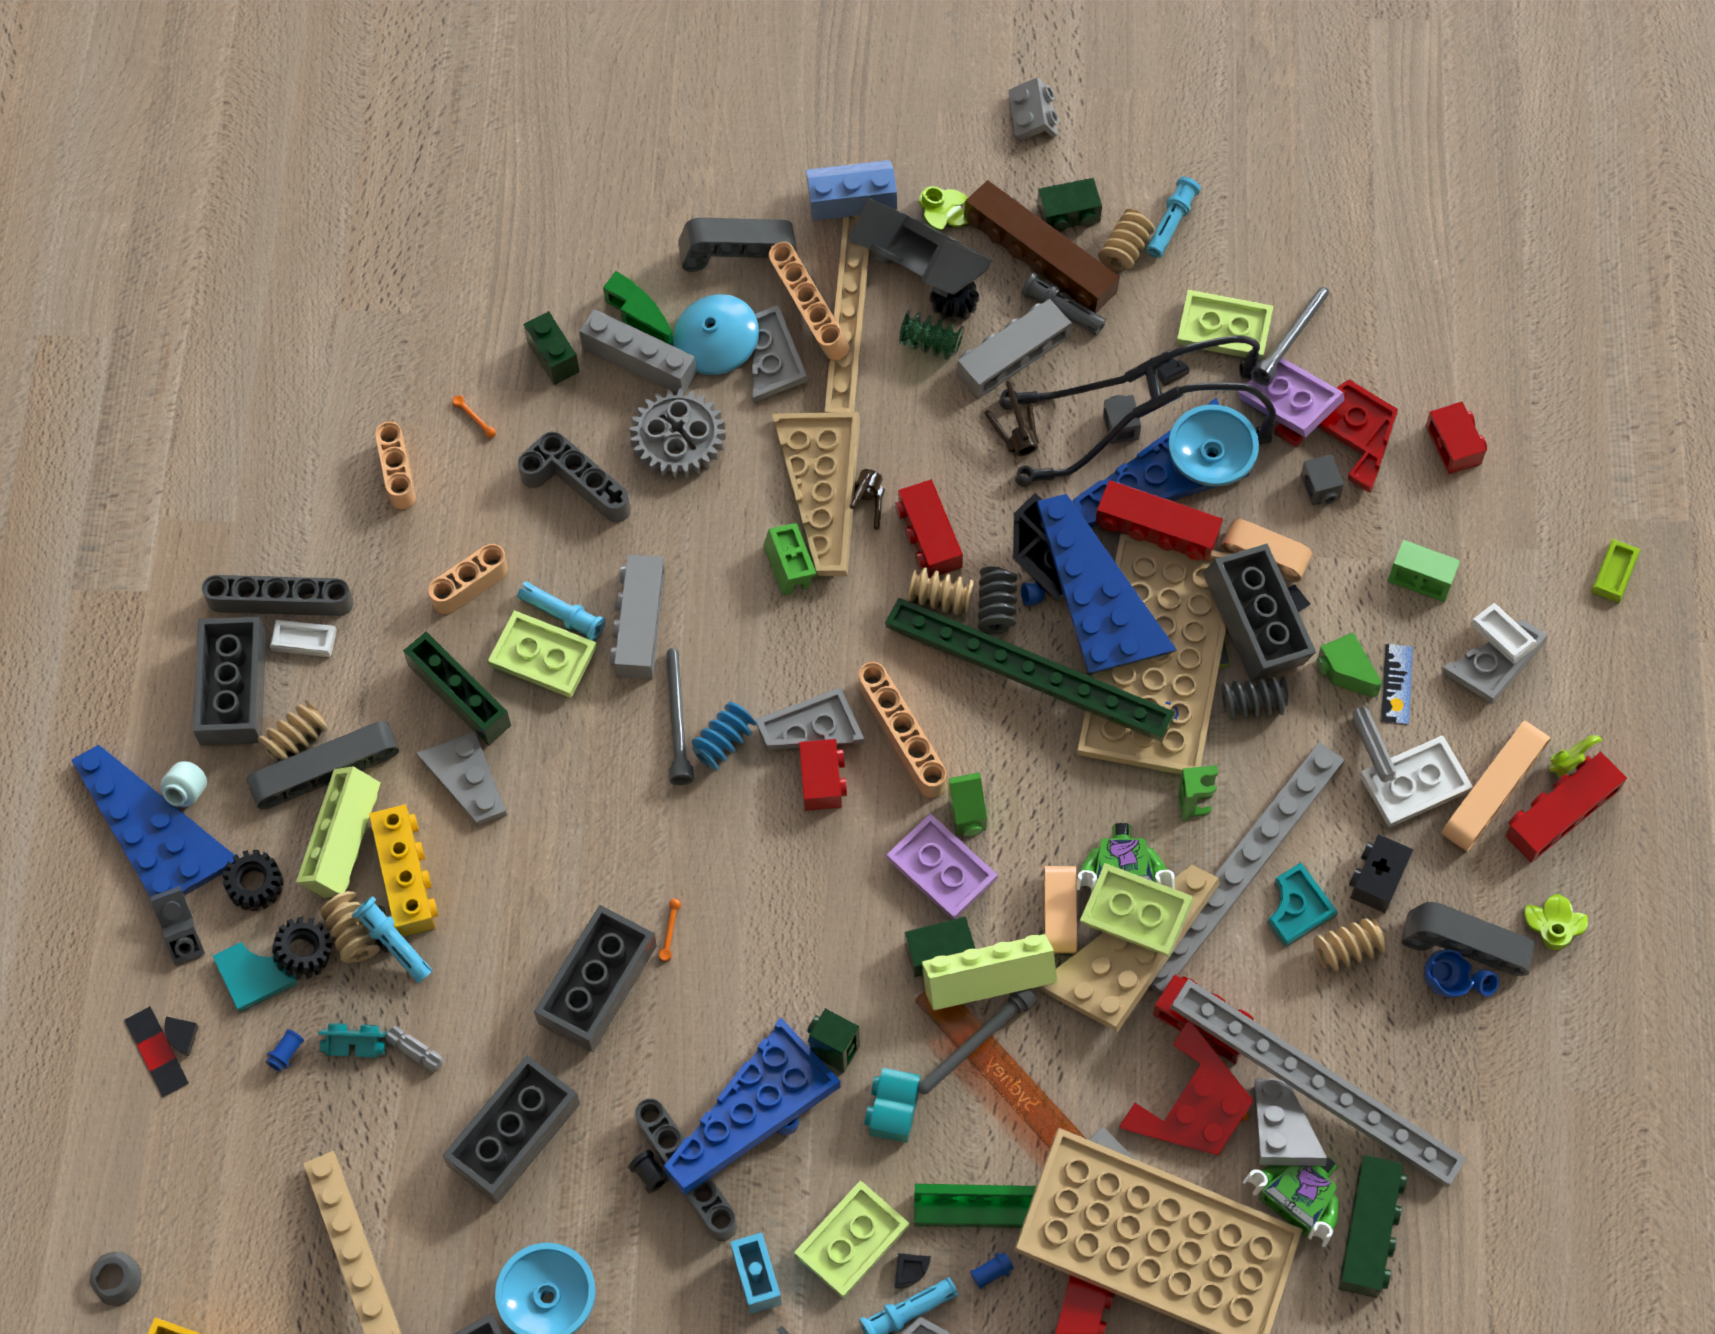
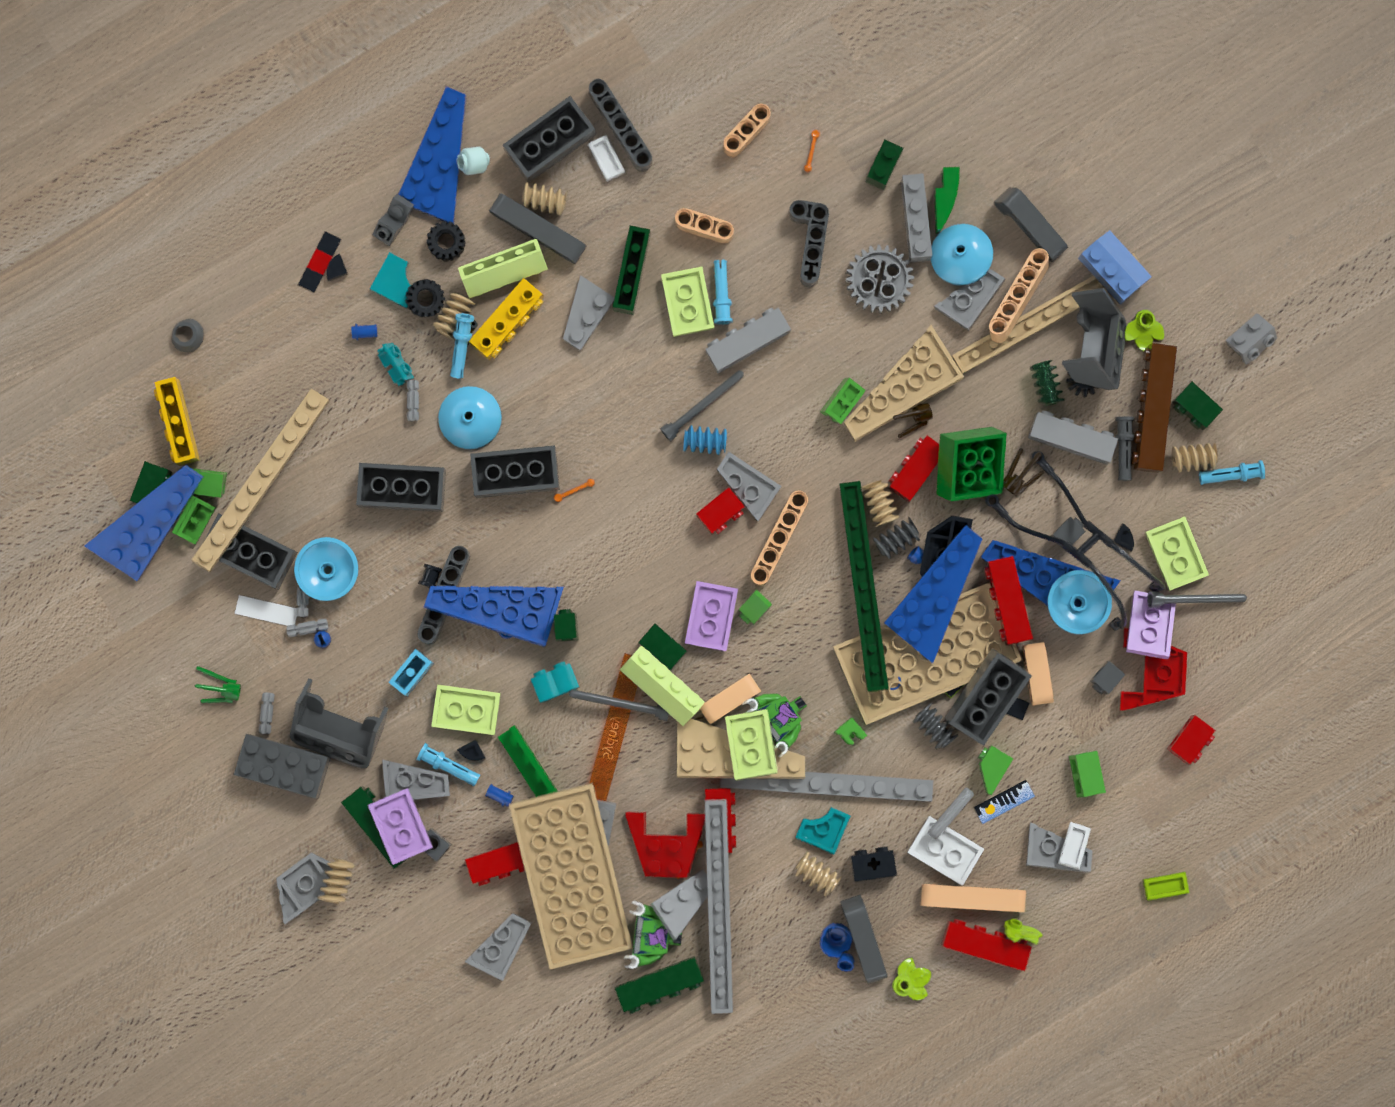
camera: 55 degrees right, 20 degrees up
(491, 1014) = (480, 428): none -> medium azure dish
(966, 465) = (971, 463): none -> green slope

